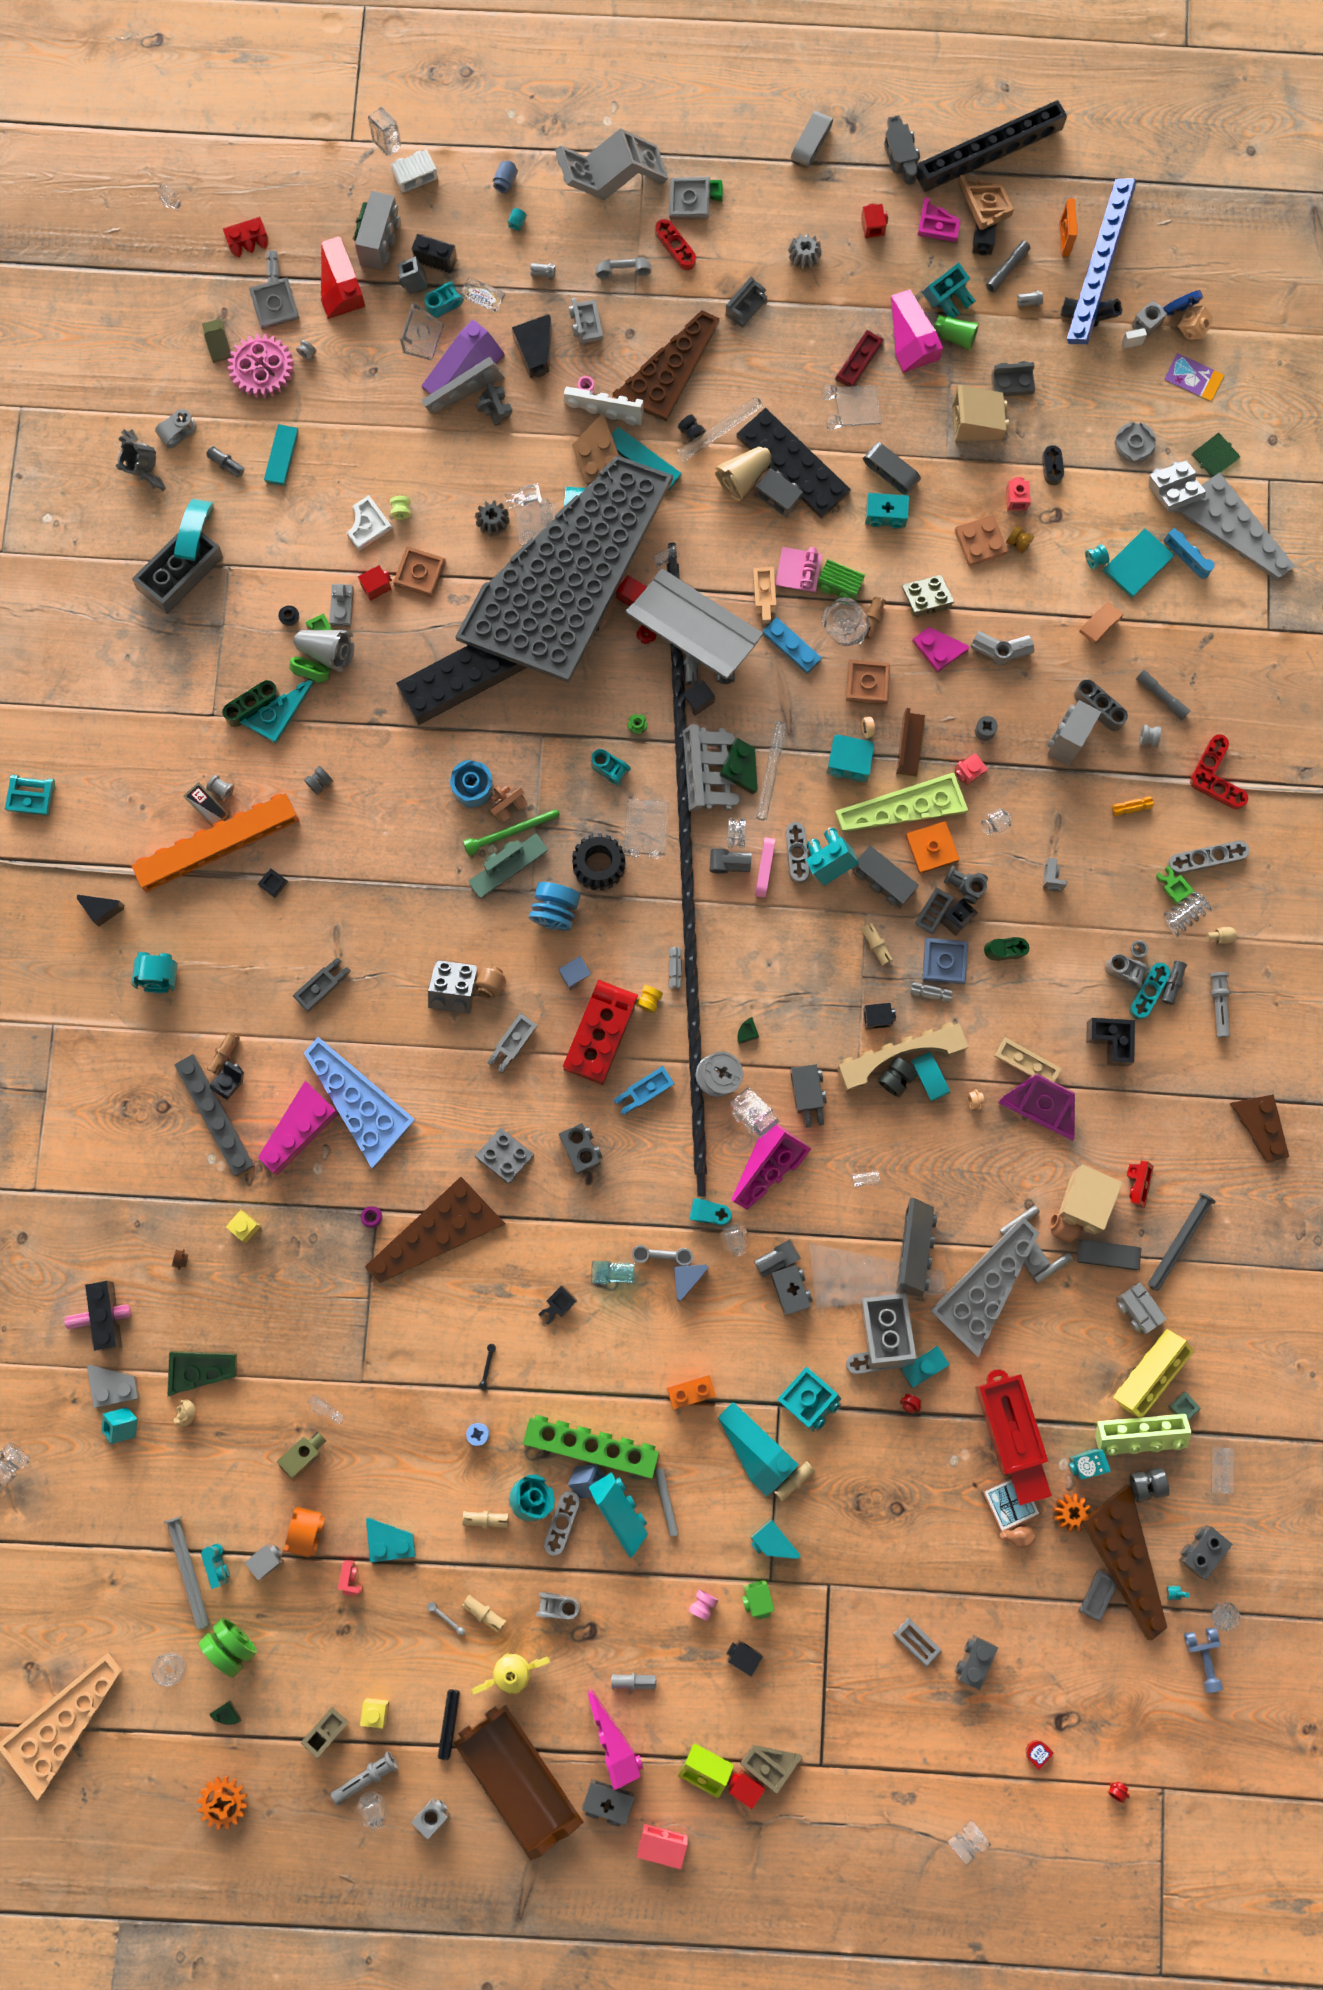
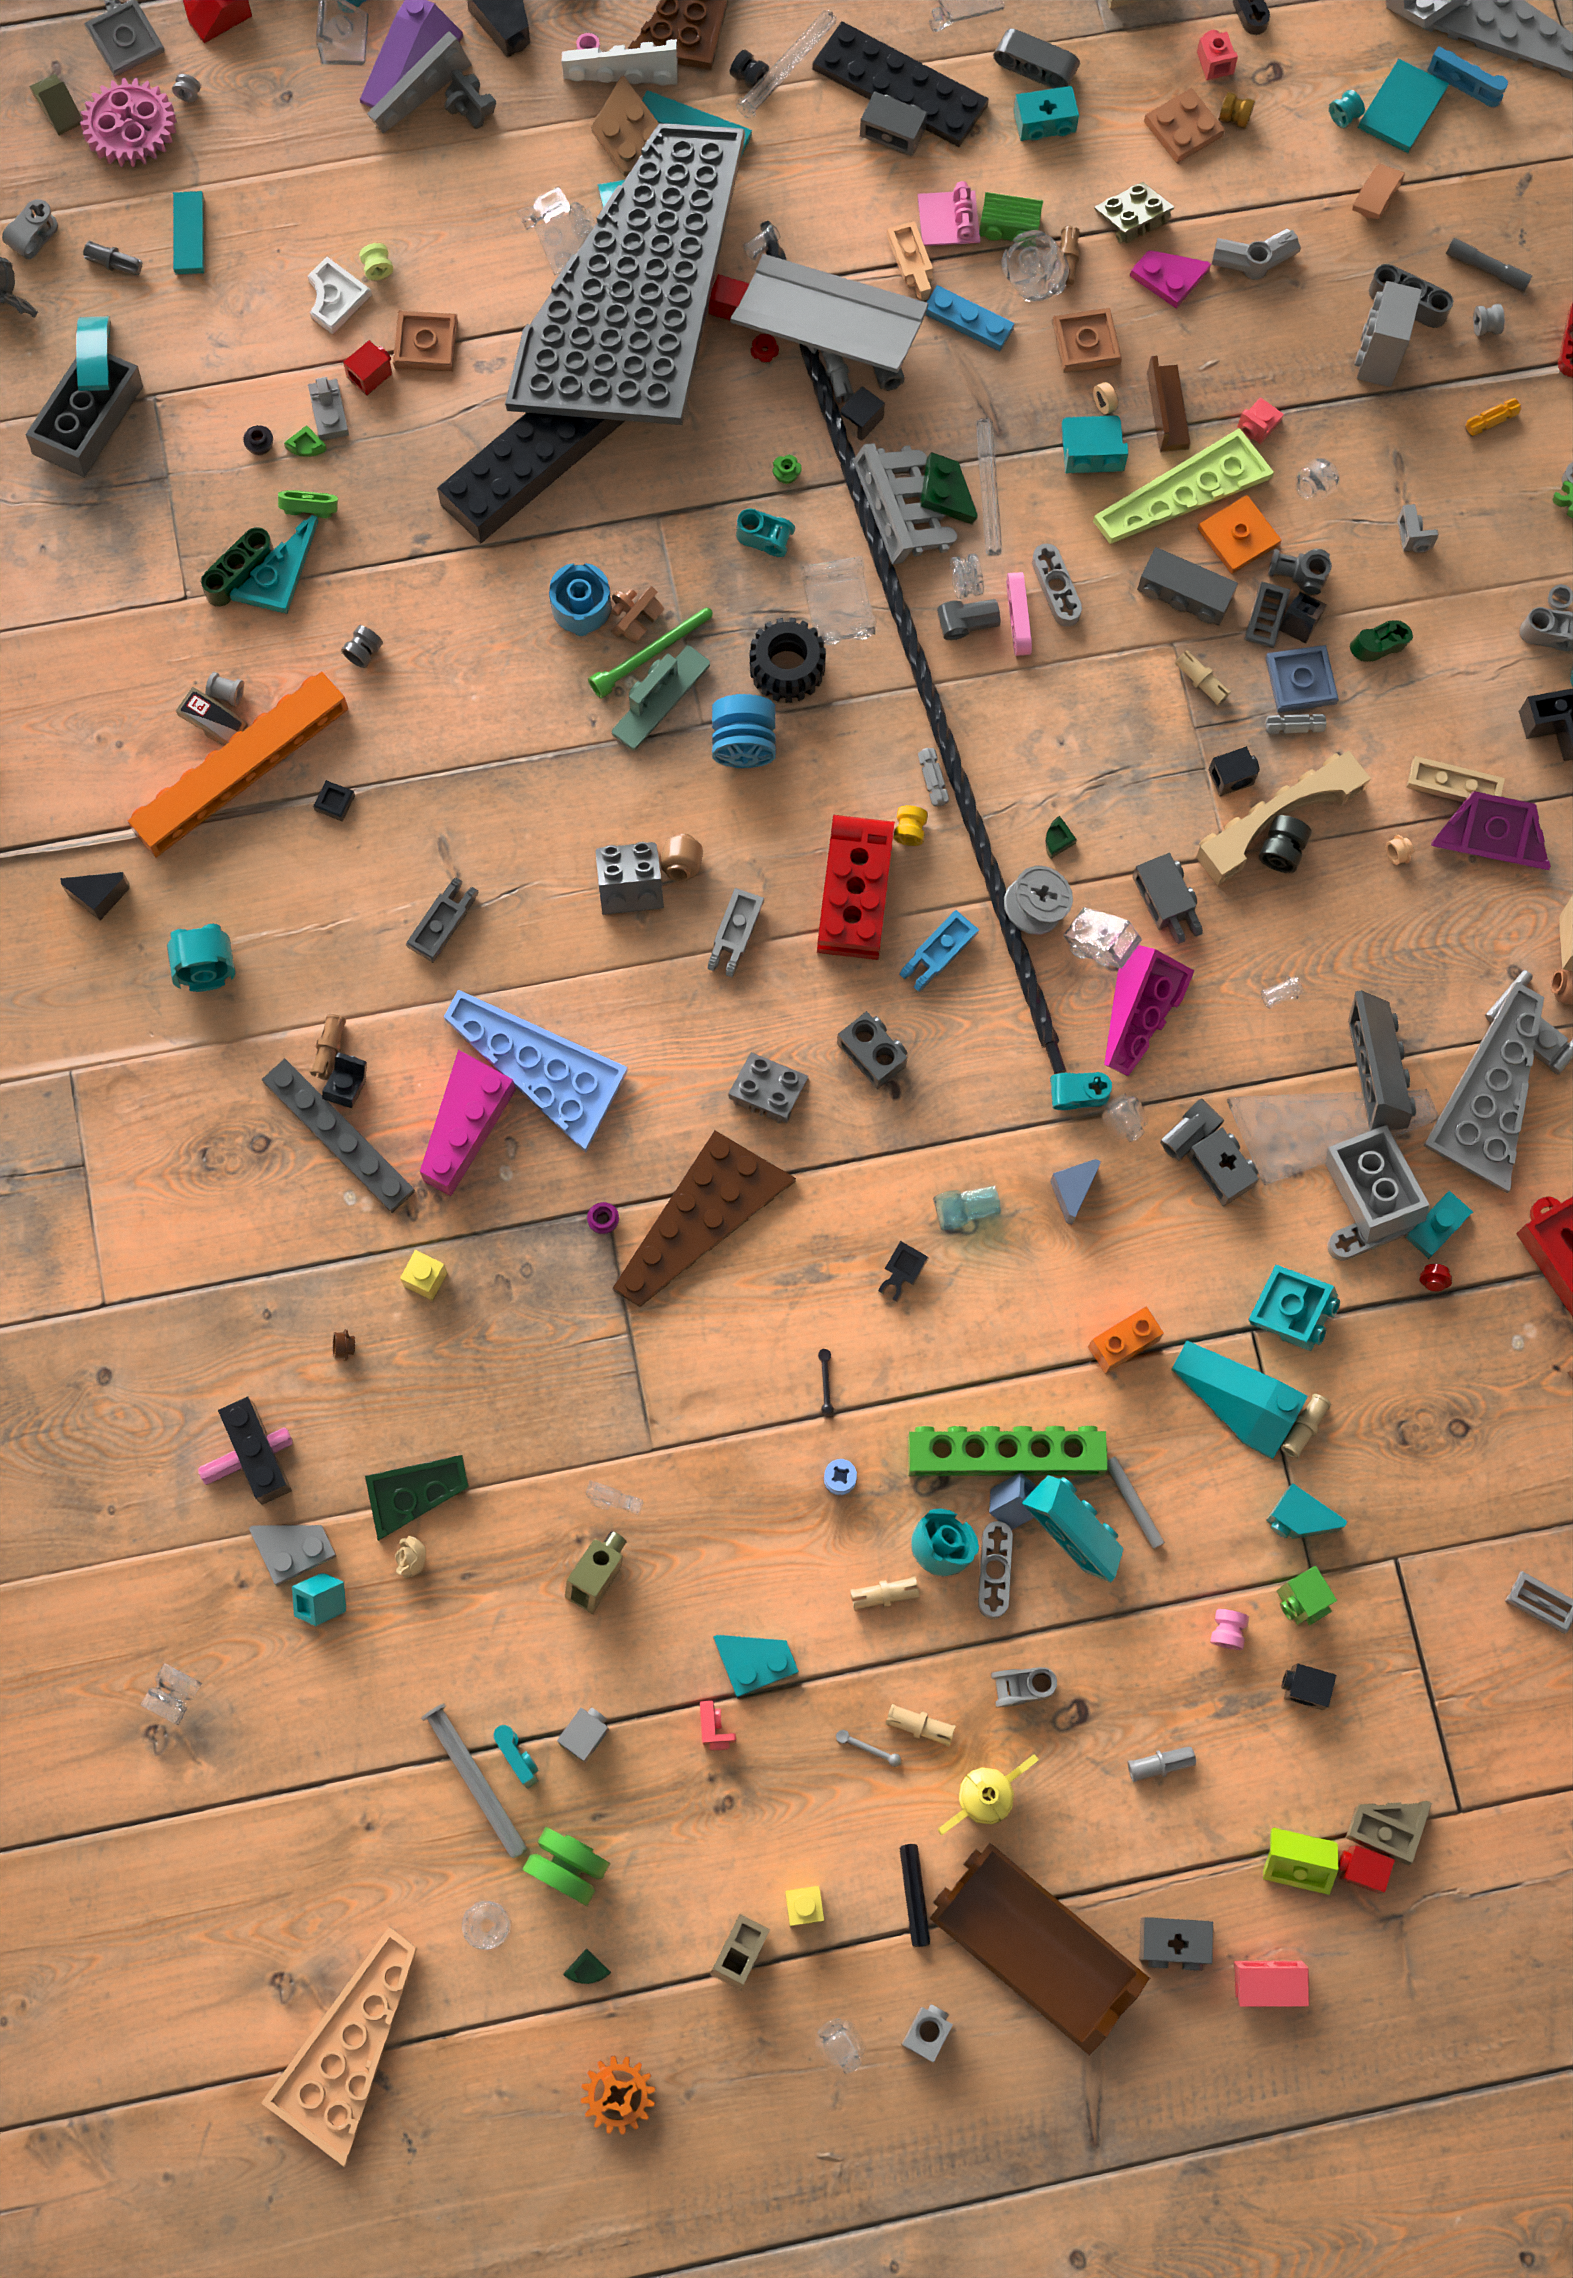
camera: 15 degrees left, 5 degrees down
(303, 1531) = (630, 1676): orange brick -> none
(326, 646) = (324, 465): light grey cone -> none
(373, 1773) = (827, 1991): light grey pin -> none
(497, 512) = (507, 246): dark grey gear -> none
(574, 972) = (795, 815): sand blue panel -> none
(620, 1756) = (1170, 1867): dark pink wedge -> none
(682, 1256) = (1000, 1169): light grey bar -> none
(743, 471) = (836, 107): tan cone -> none
(831, 860) = (1109, 578): teal brick -> none
(930, 1076) = (1331, 833): teal slope -> none
(983, 732) = (1266, 369): dark grey wheel -> none

